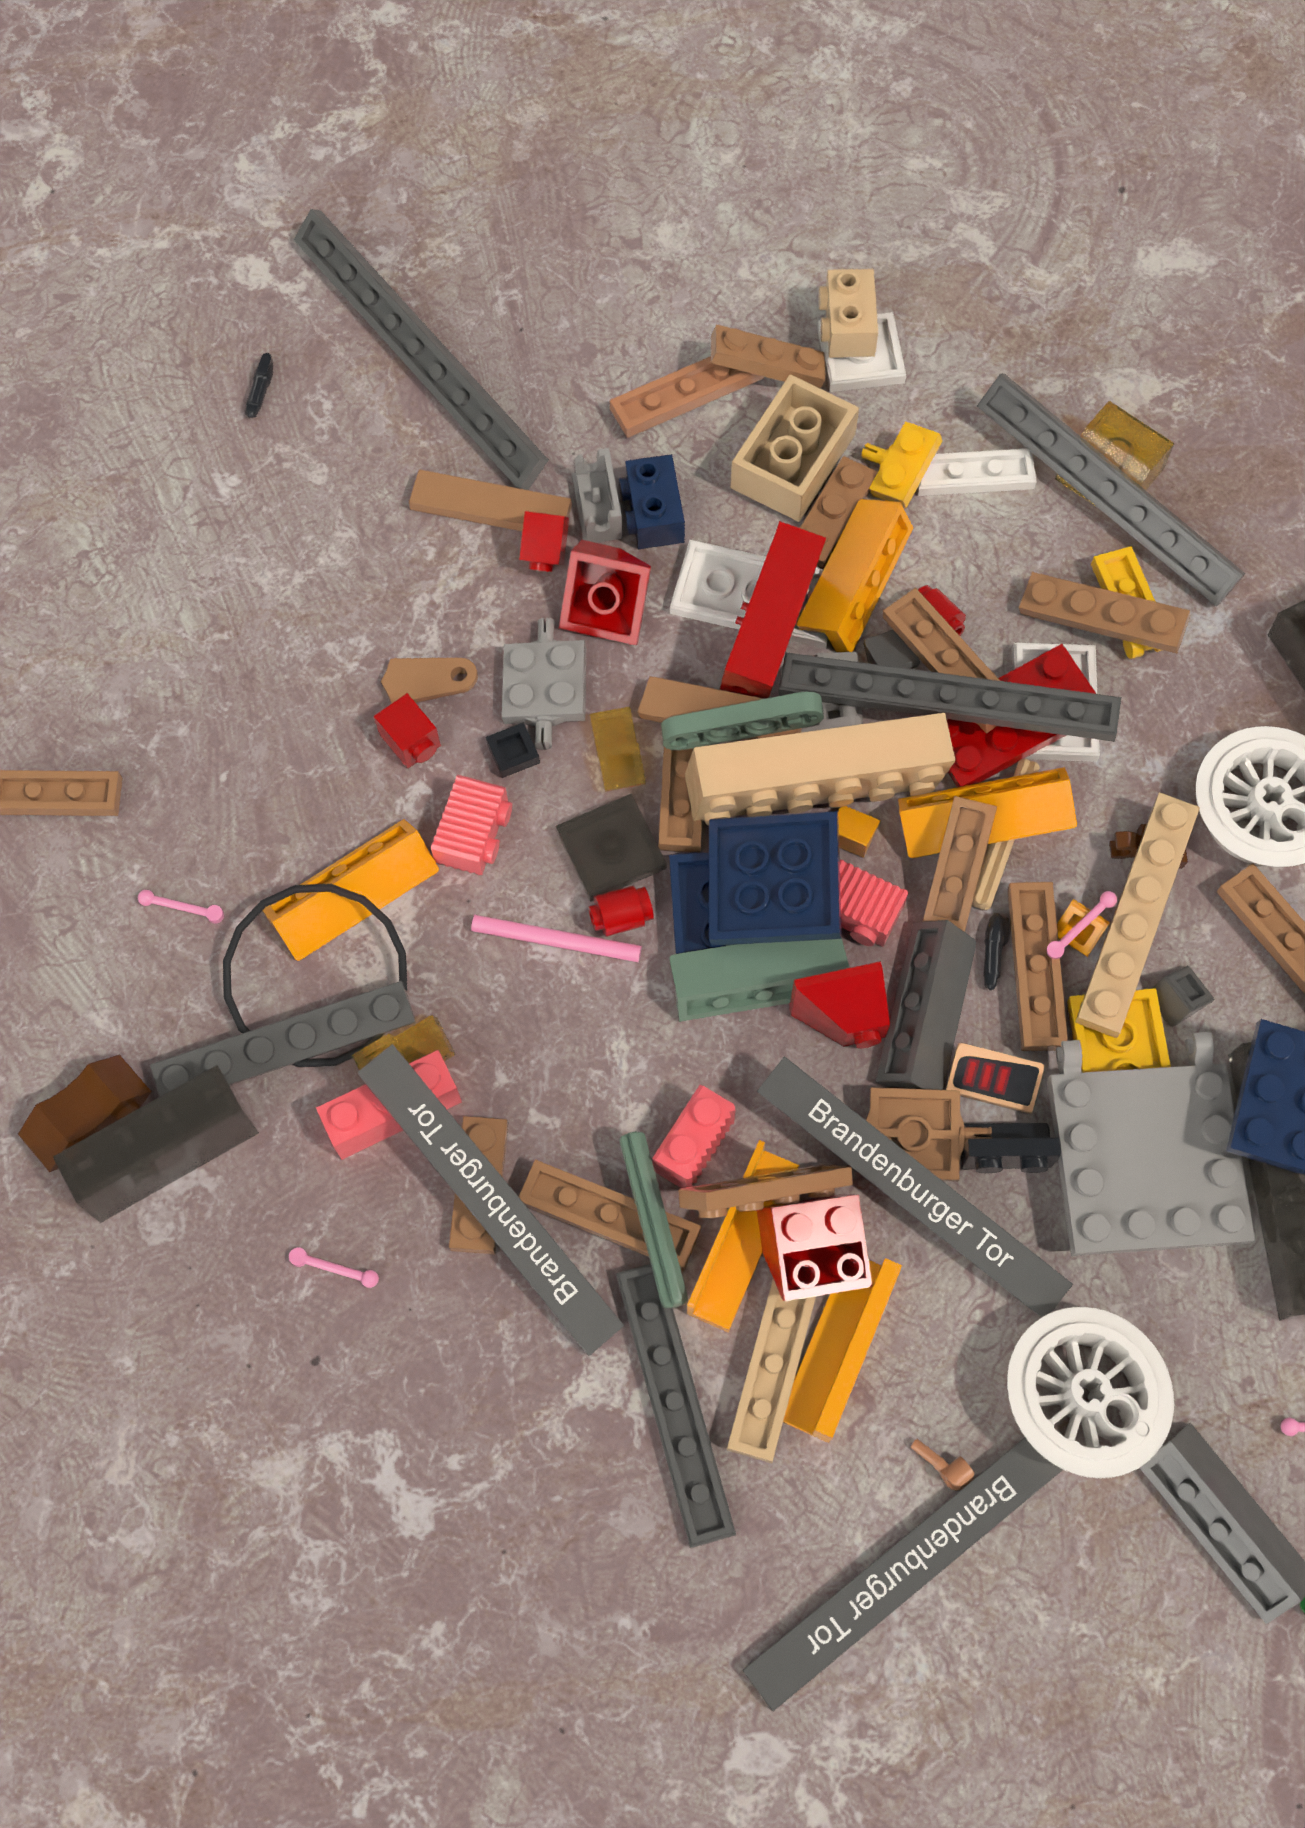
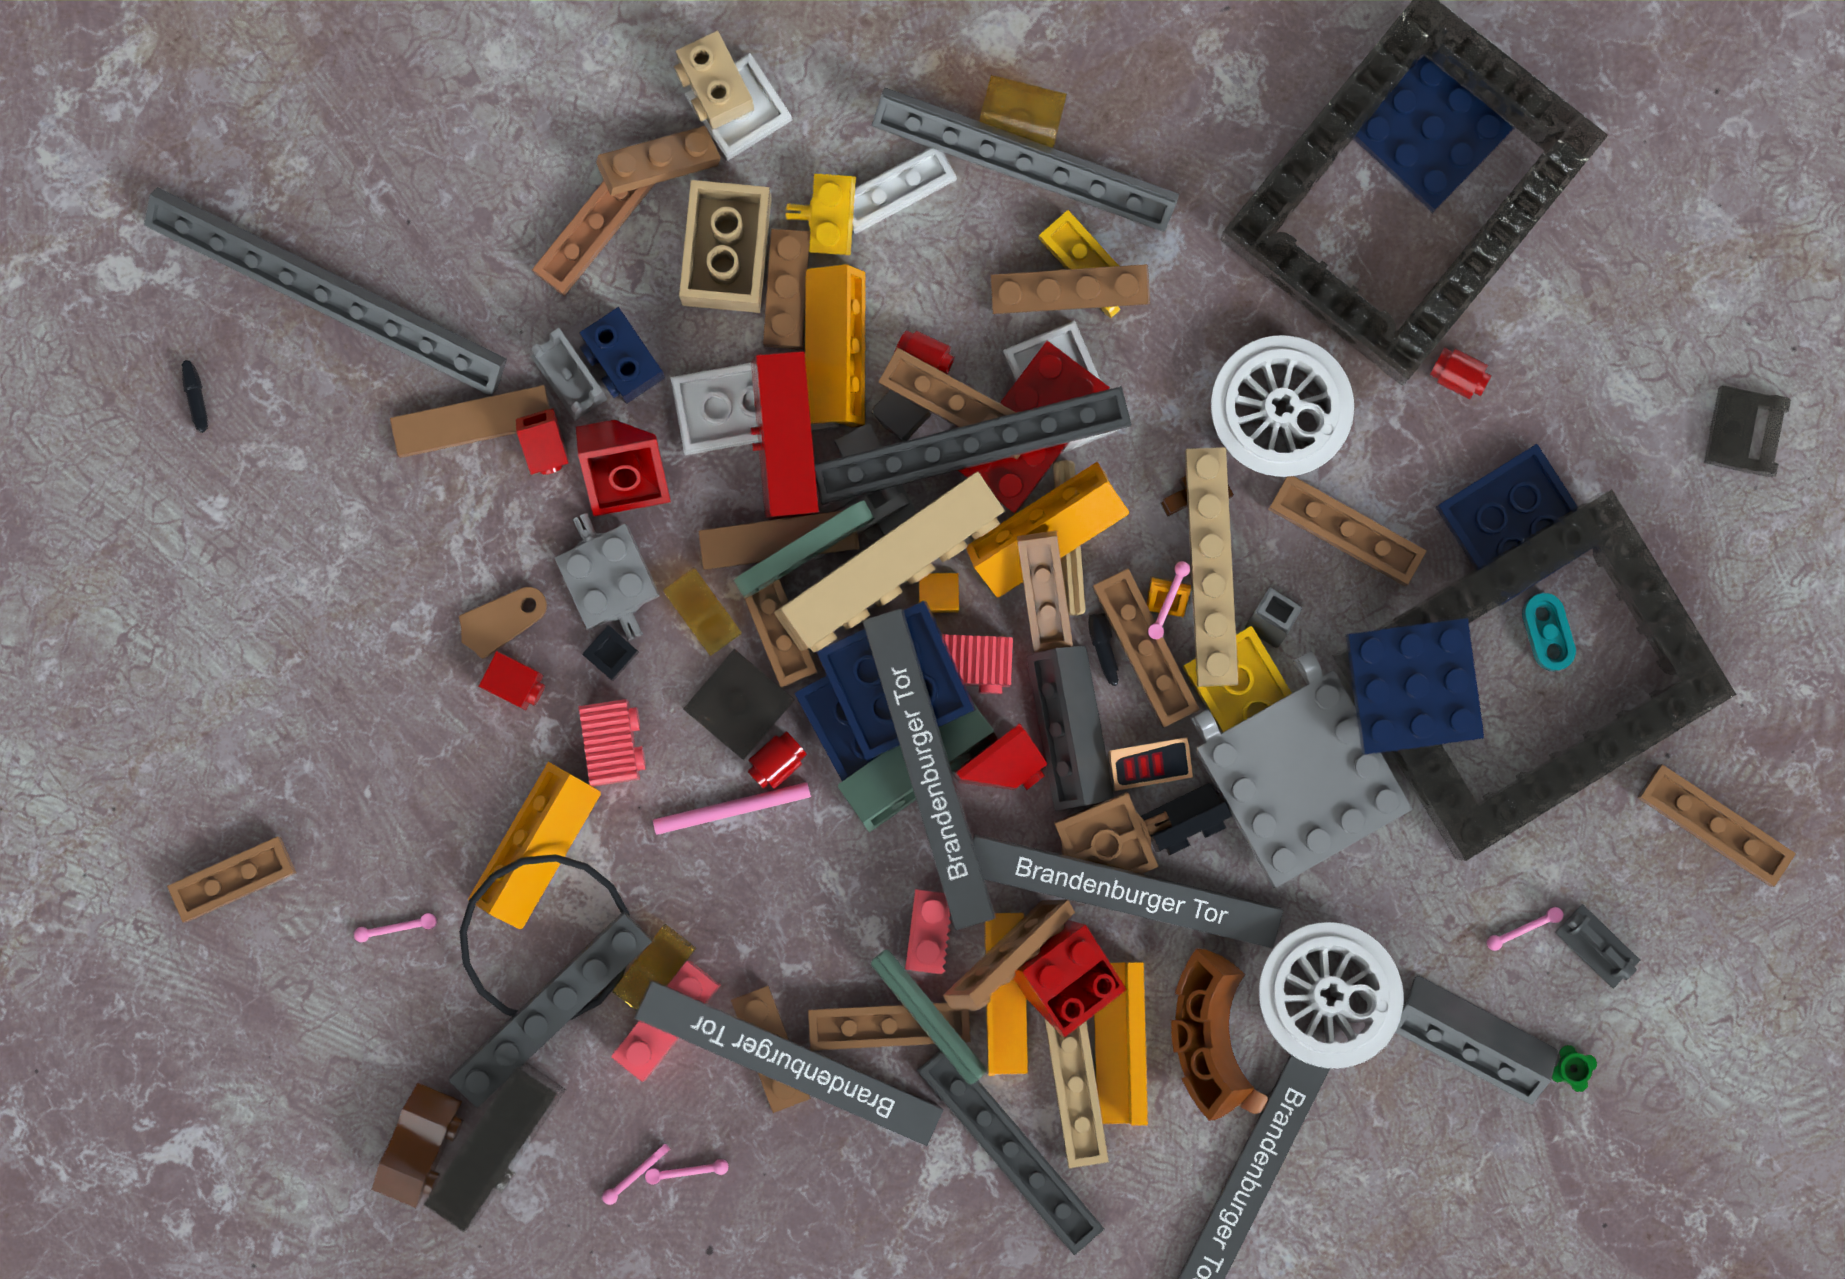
camera: 30 degrees left, 15 degrees up
(245, 1255) = (611, 1195): none -> bright pink hinge
(767, 975) = (929, 769): none -> dark grey tile
(932, 1375) = (1203, 1035): none -> dark orange brick

